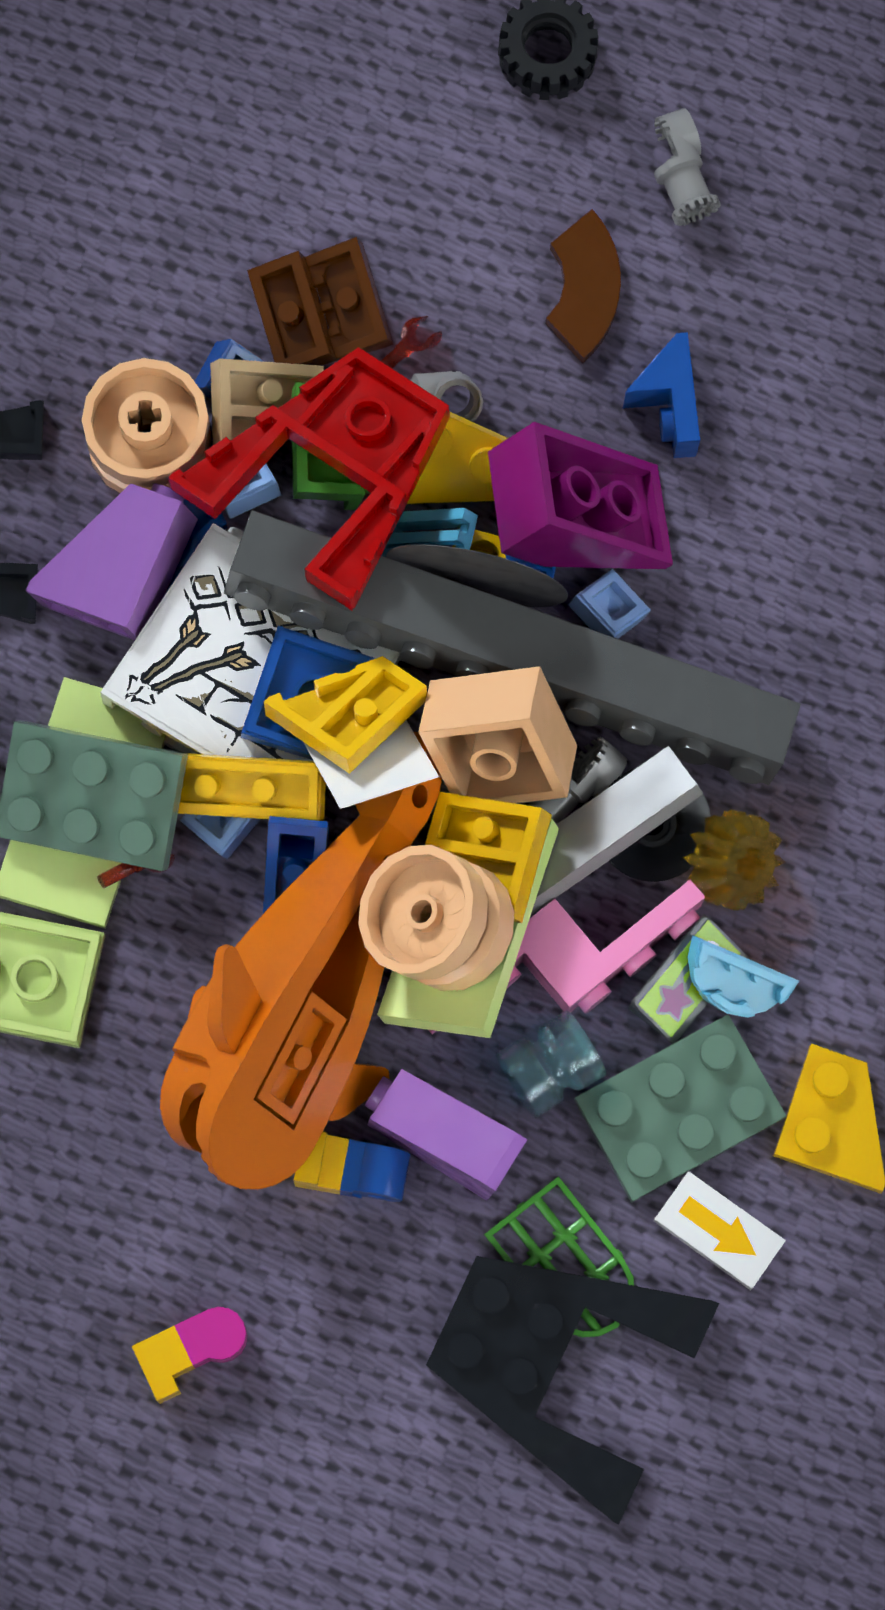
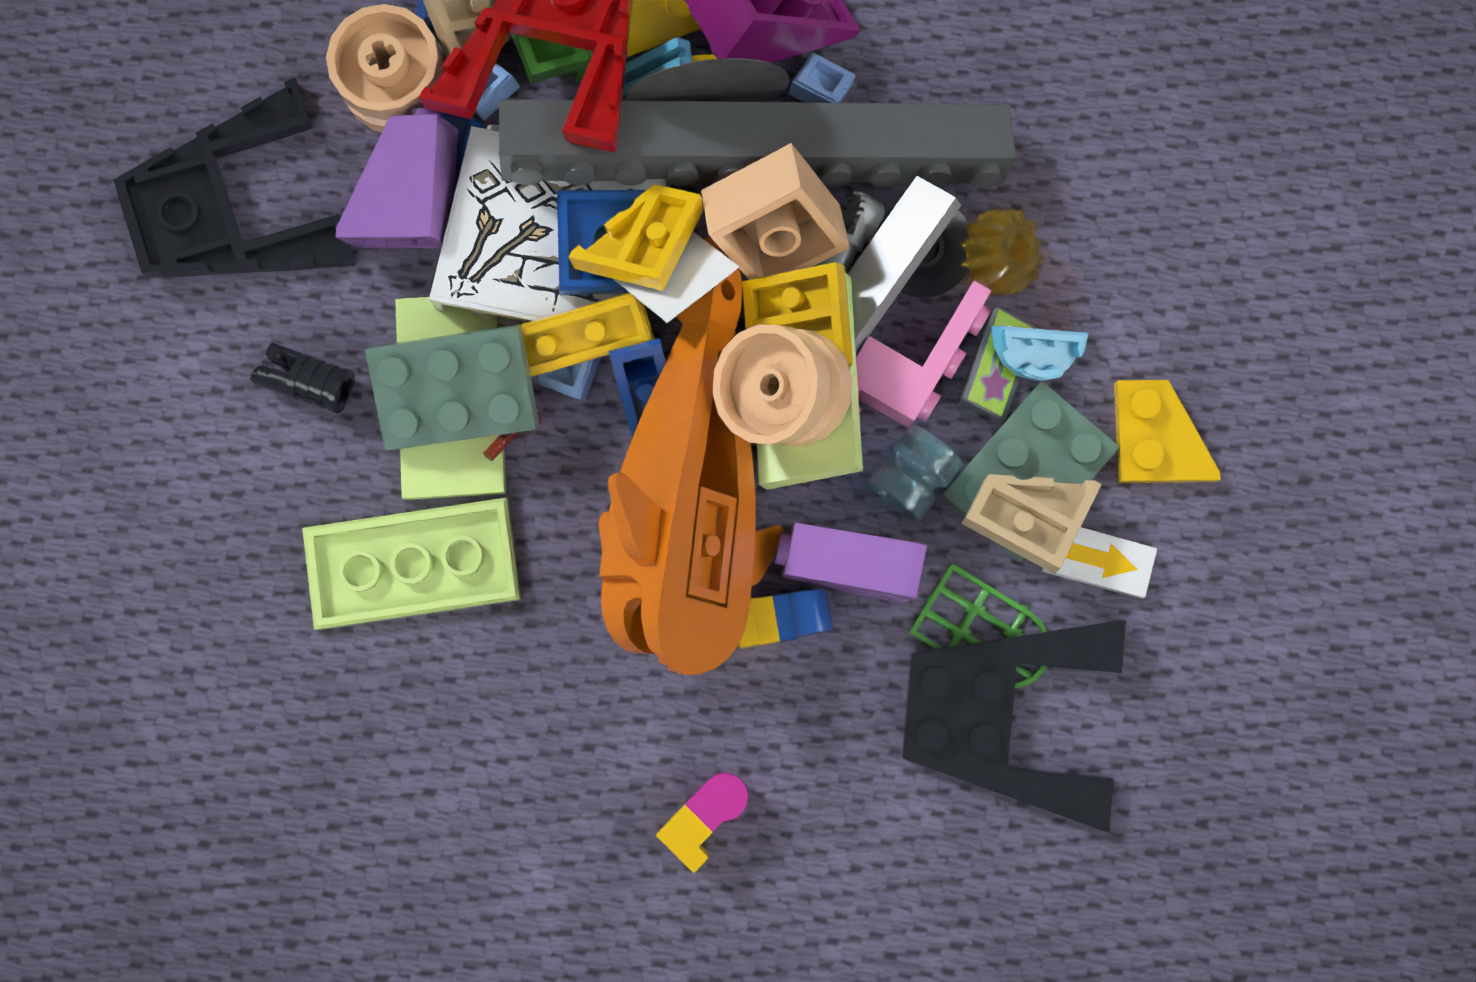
camera: 15 degrees left, 5 degrees up
(657, 1152) = (1031, 515): none -> tan wing

